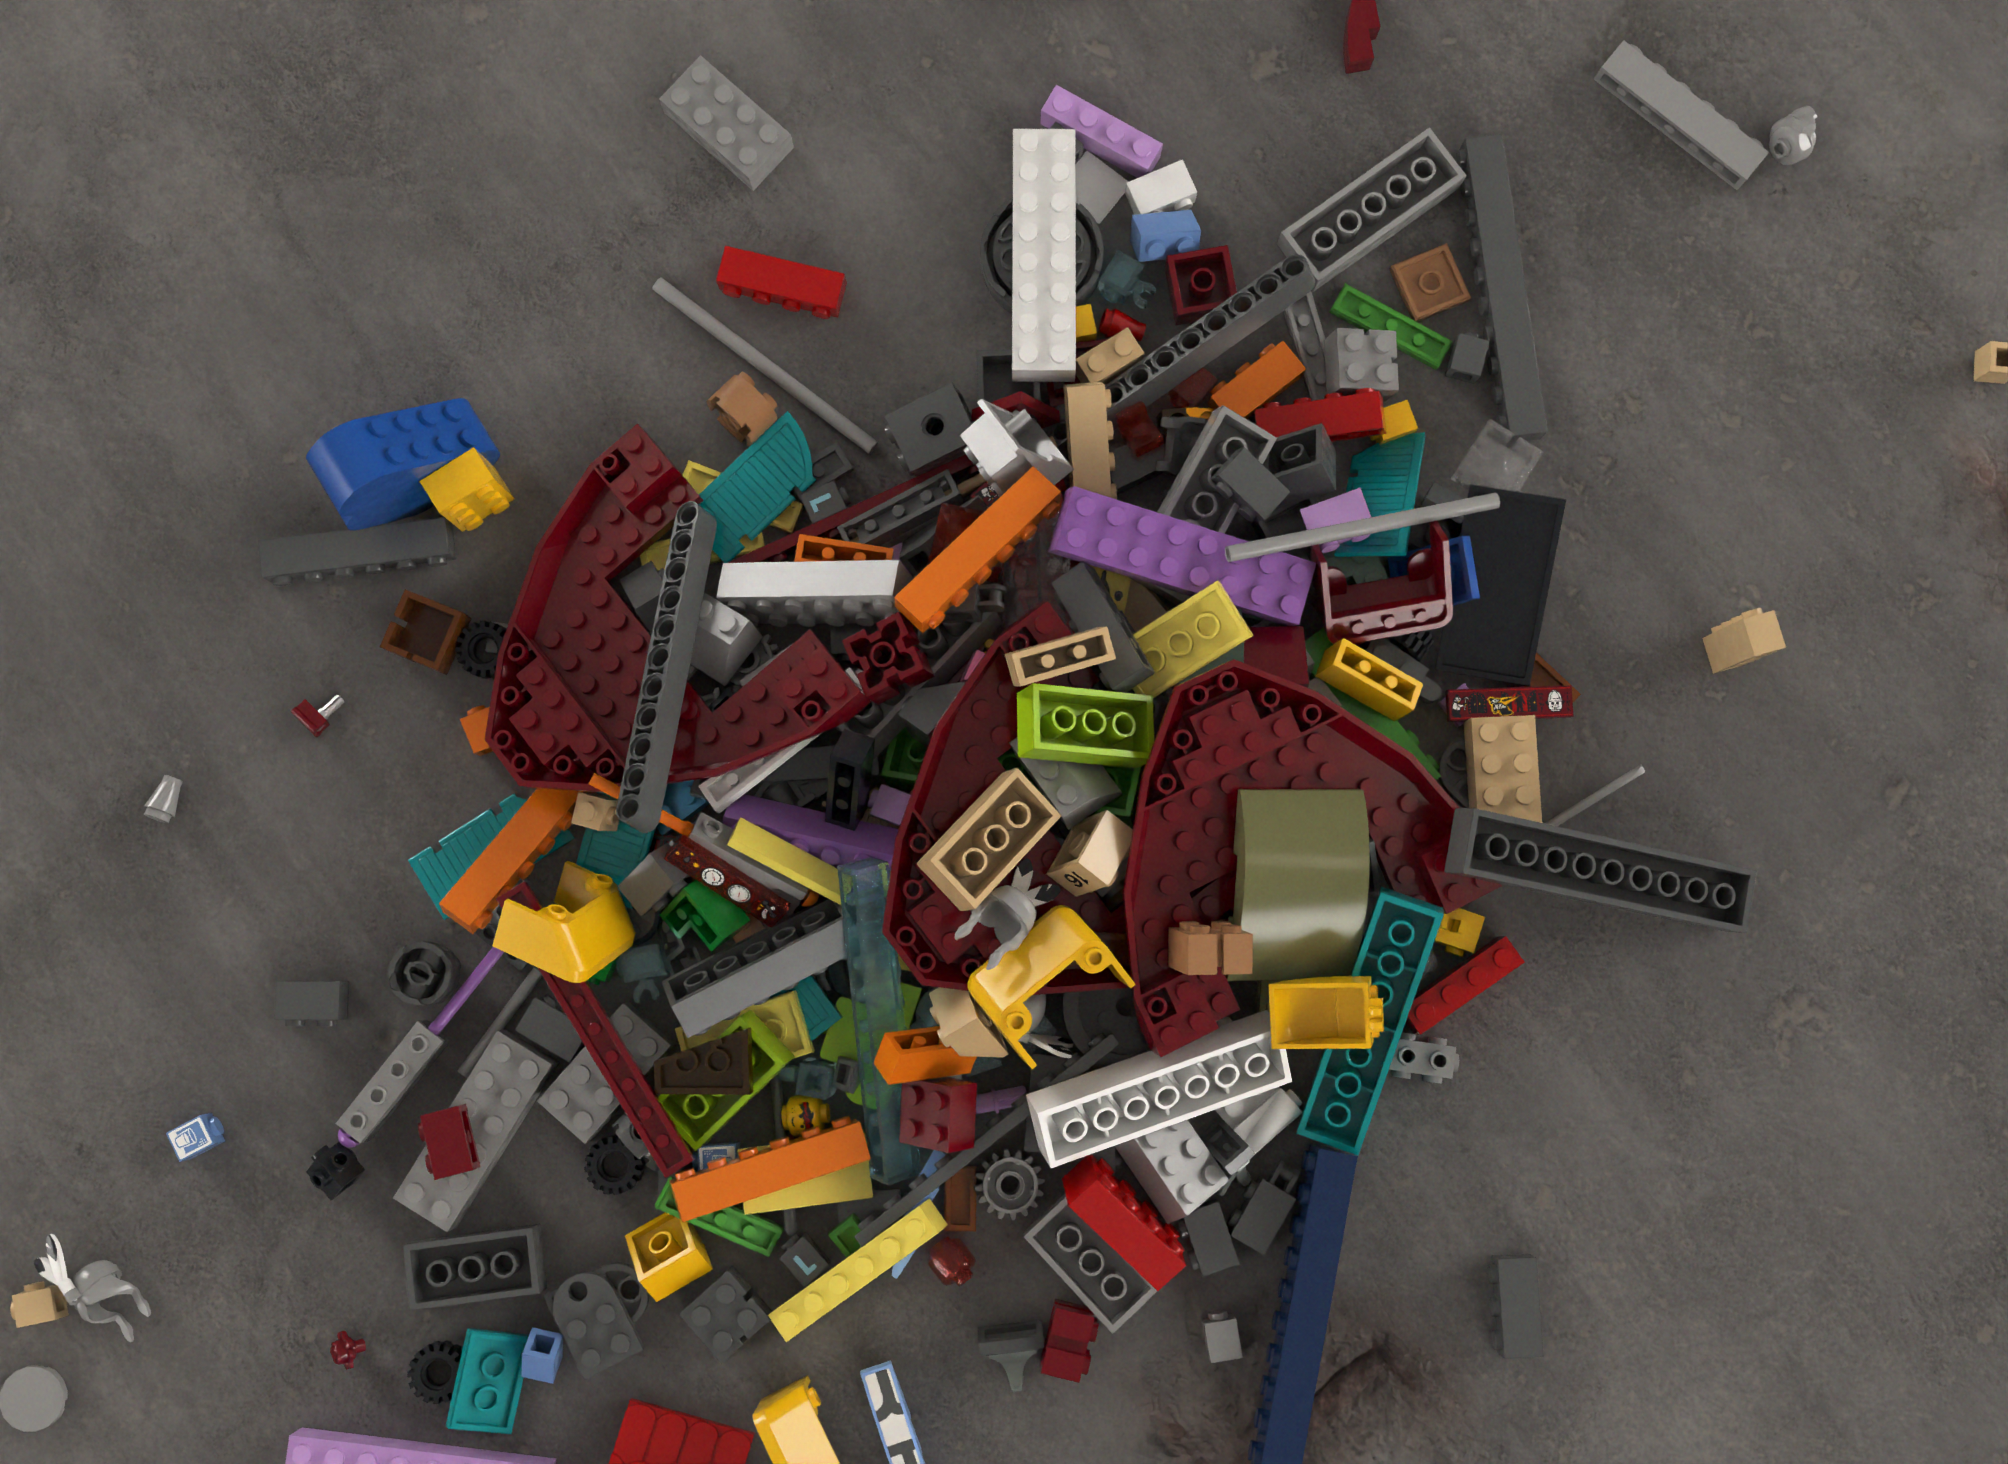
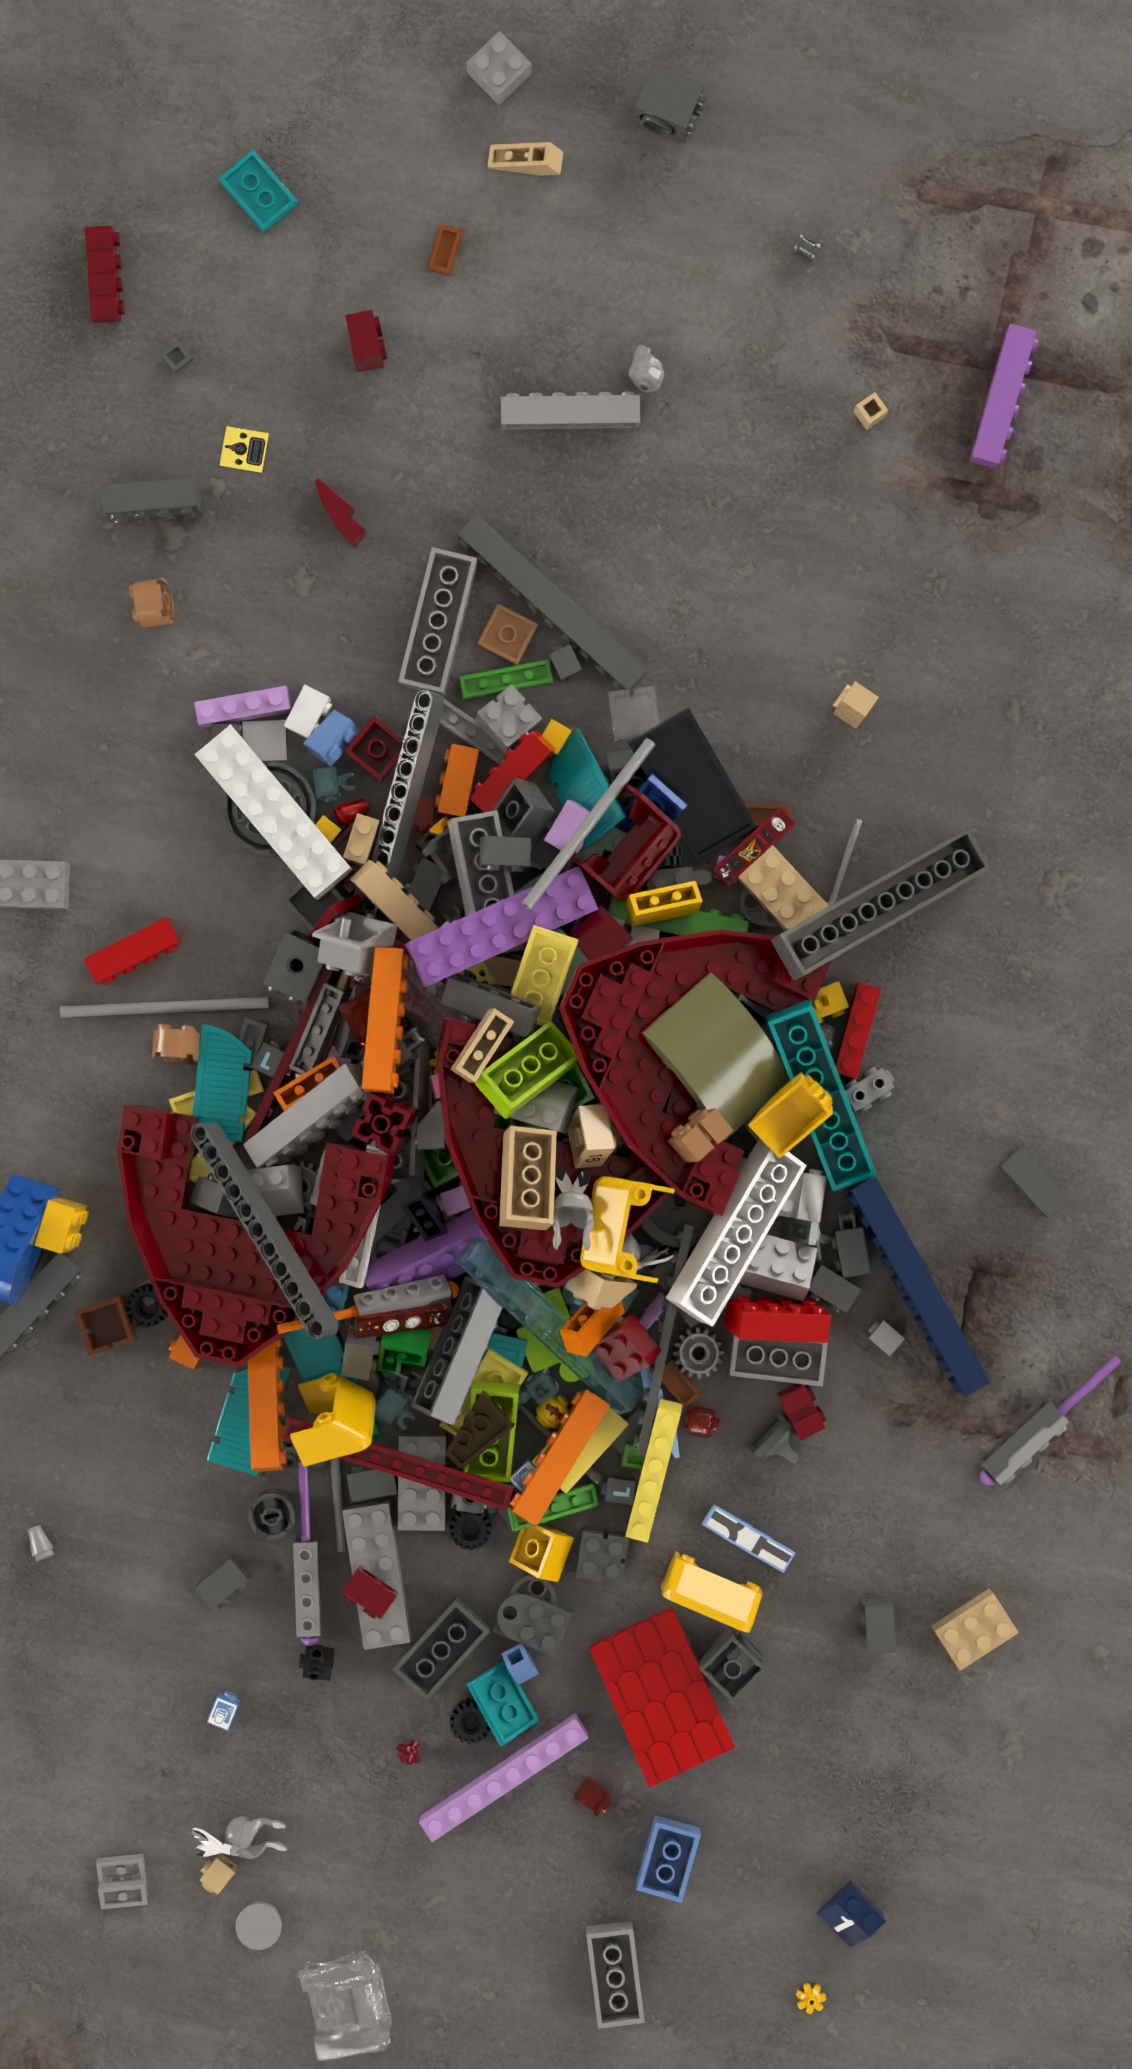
camera: 40 degrees left, 5 degrees up
(316, 720) = (83, 1427): dark red piece -> none
(596, 812) = (293, 1344): tan brick -> none
(786, 859) = (423, 1281): light yellow tile -> none
(846, 1075) = (557, 1370): dark grey slope -> none
(1138, 429) = (413, 866): clear red bracket -> none

